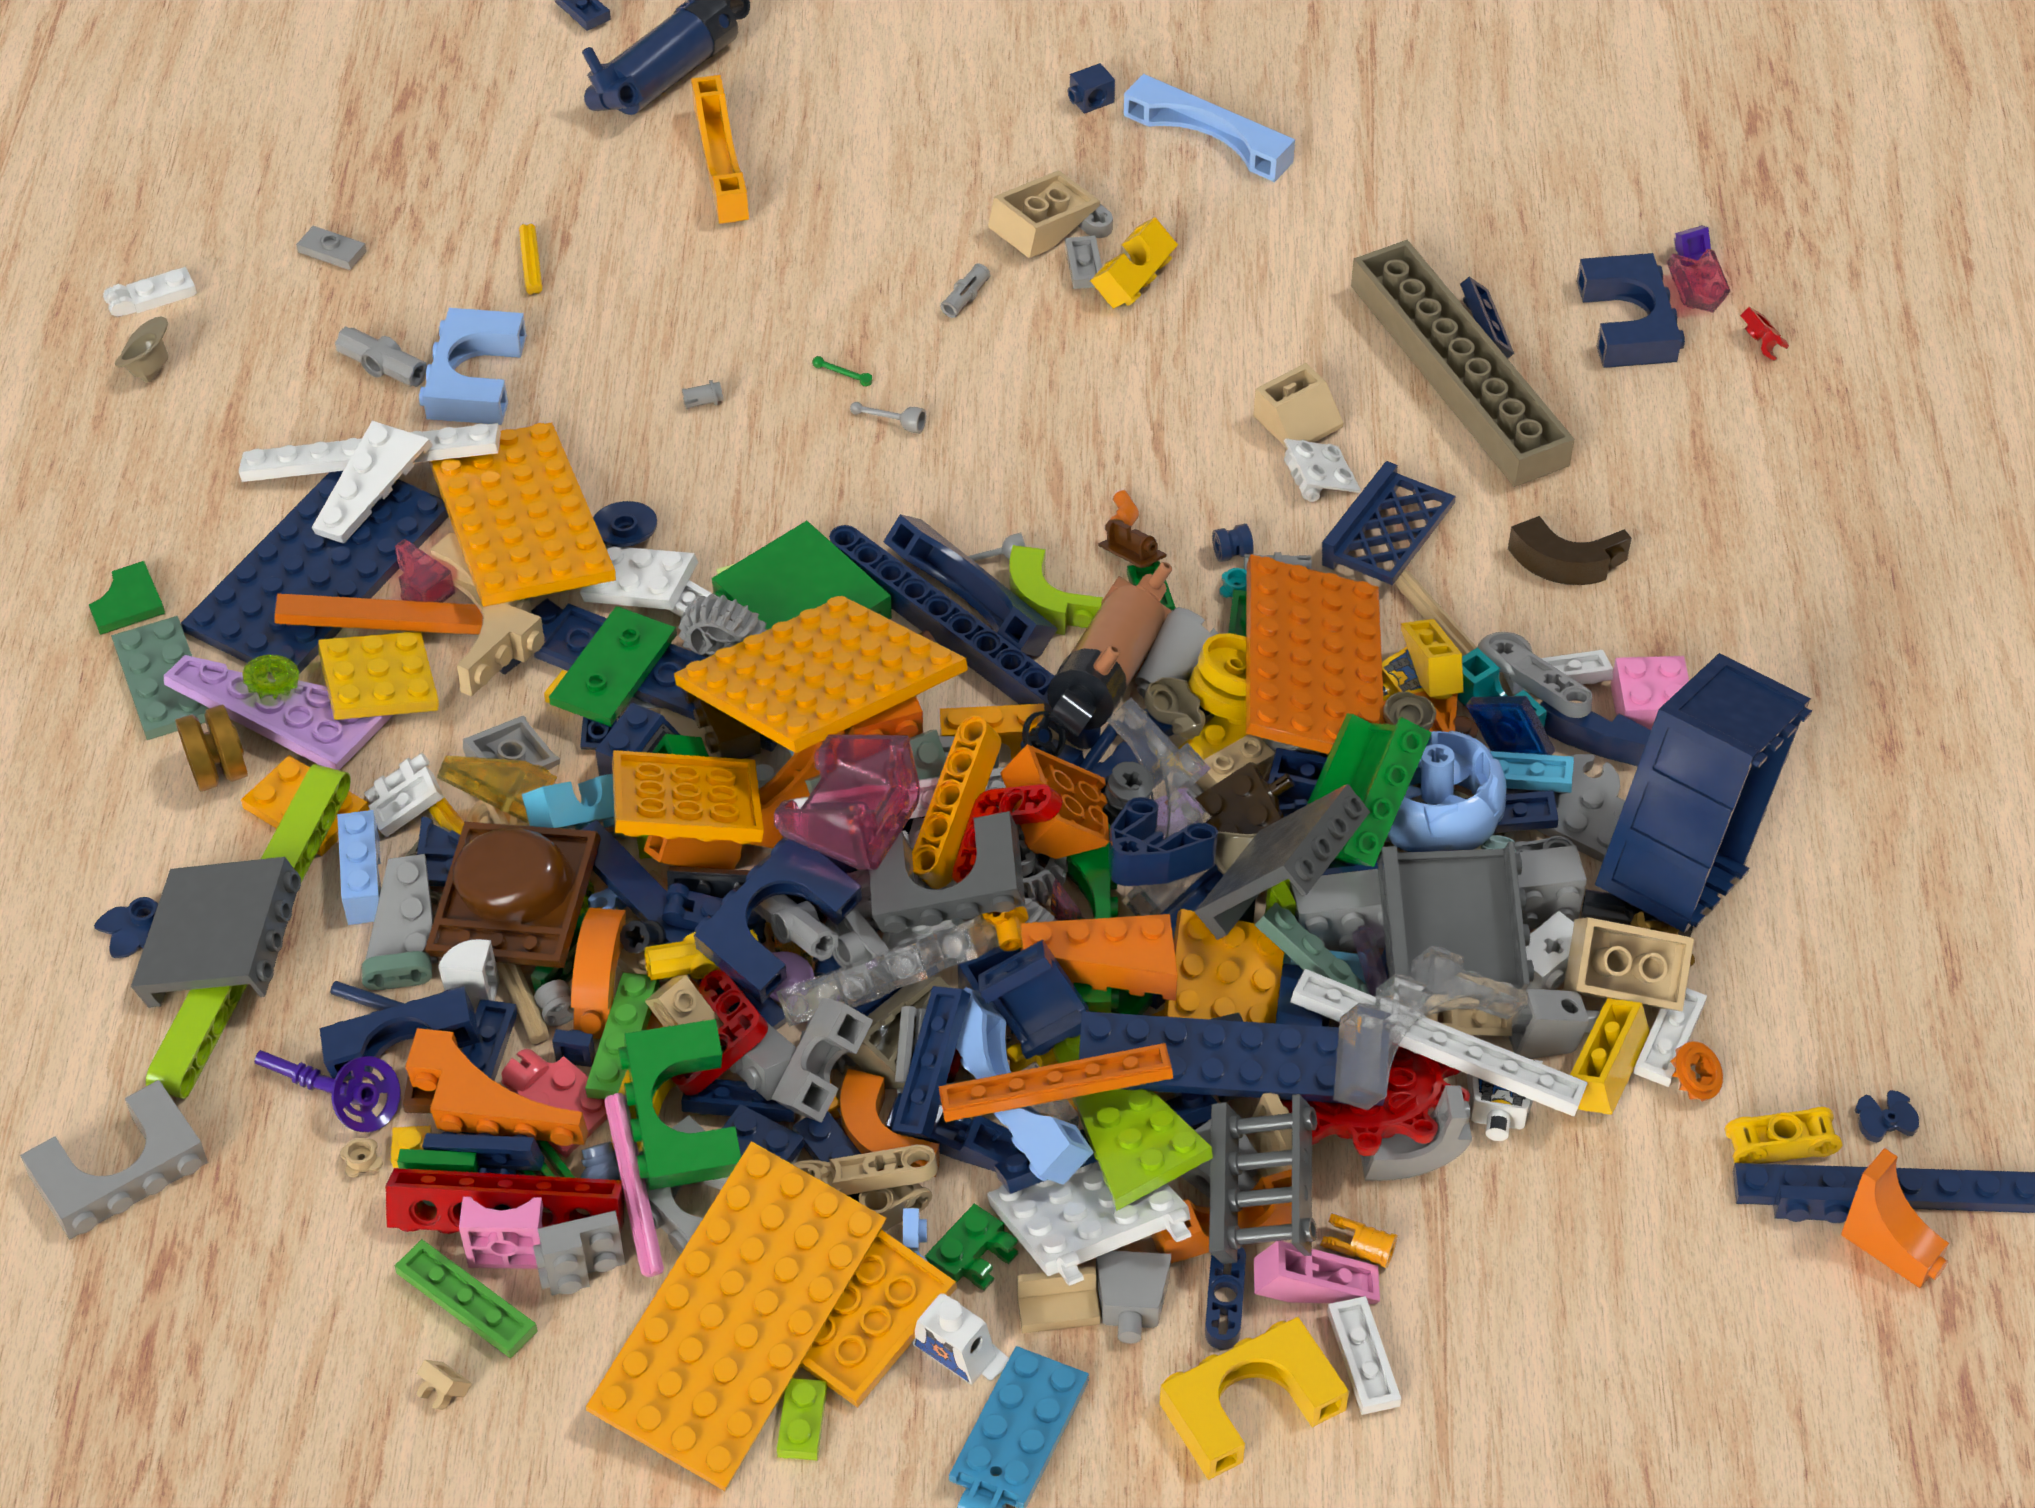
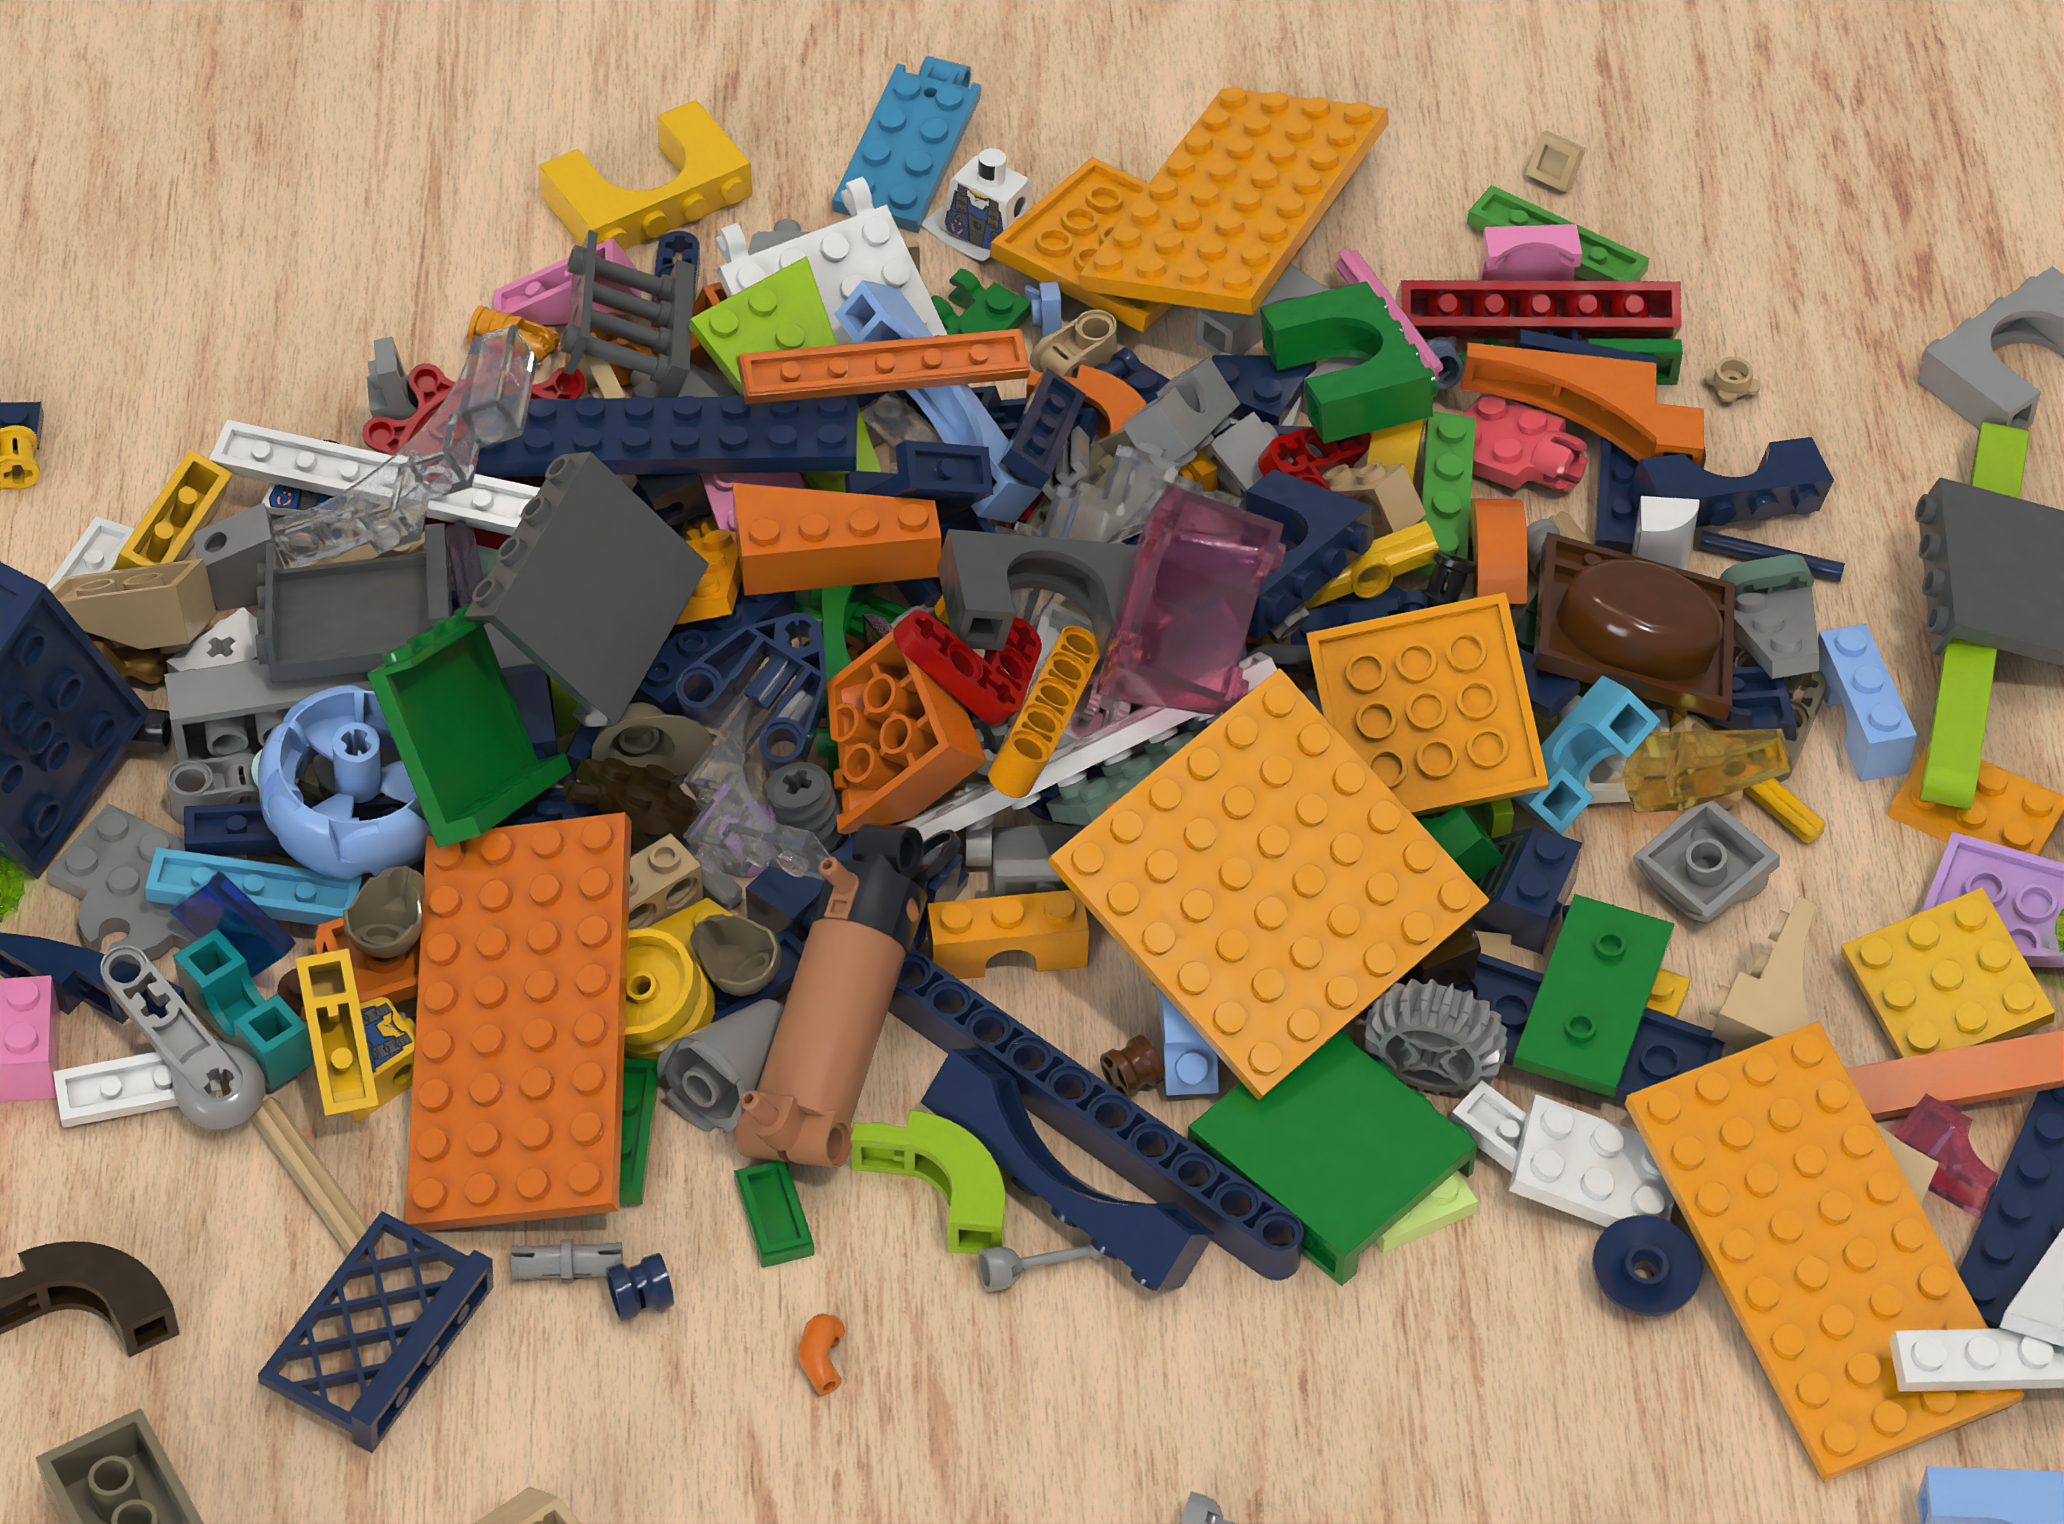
camera: 175 degrees right, 0 degrees up
(345, 1093) = (1753, 425): dark purple dish -> none
(403, 794) = (1837, 792): white plate -> none
(407, 1138) = (1679, 390): yellow plate -> none
(574, 1046) = (1509, 487): dark blue plate -> none
(575, 1249) = (1440, 251): light grey plate -> none
(802, 1419) = (1148, 147): lime plate -> none
(861, 1173) = (1130, 339): tan beam -> none
(1131, 544) = (805, 1264): reddish brown hinge -> none
(1233, 580) = (636, 1210): teal plate -> none
(1318, 467) = (482, 1450): white hinge -> none
(1364, 1355) = (516, 225): white plate -> none
(1705, 1064) = (59, 526): orange gear -> none

